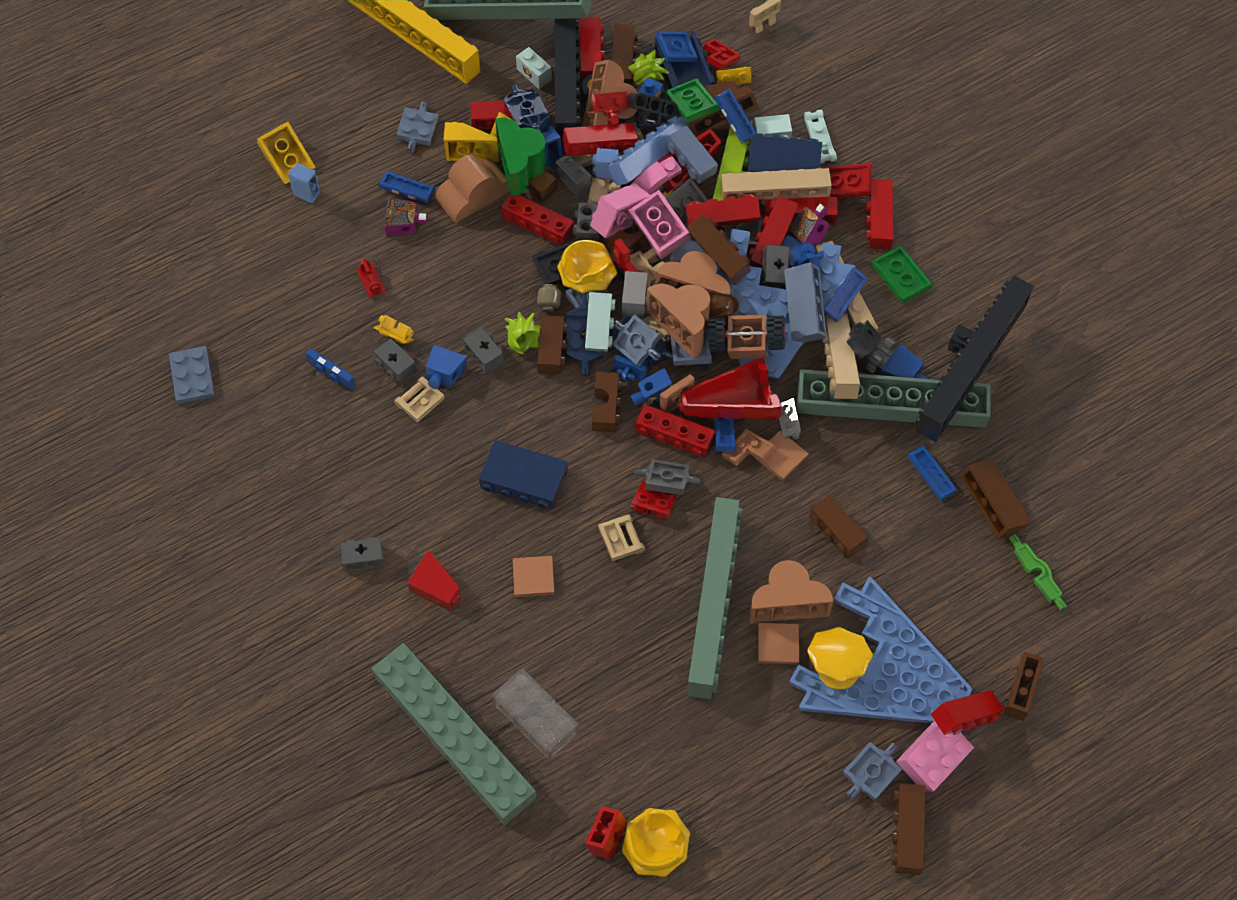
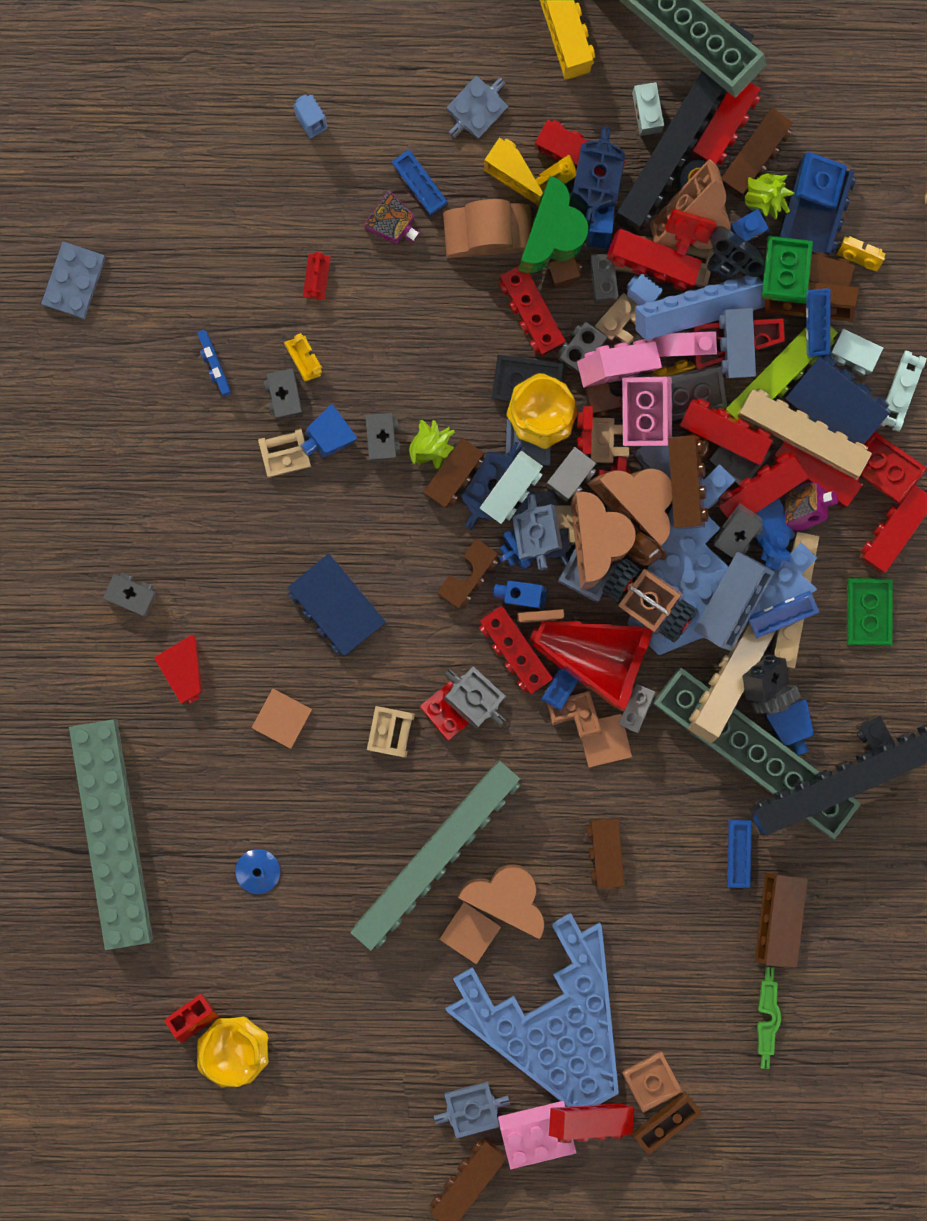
camera: 20 degrees right, 25 degrees up
(284, 151) = (314, 59): yellow slope -> none
(535, 713) = (197, 862): clear brick -> none
(549, 298) = (485, 416): dark tan head -> none
(586, 706) = (269, 871): none -> blue dish
(720, 54) = (869, 218): red plate -> none
(839, 657) = (514, 988): yellow piece -> none
(990, 669) = (652, 1081): none -> nougat tile

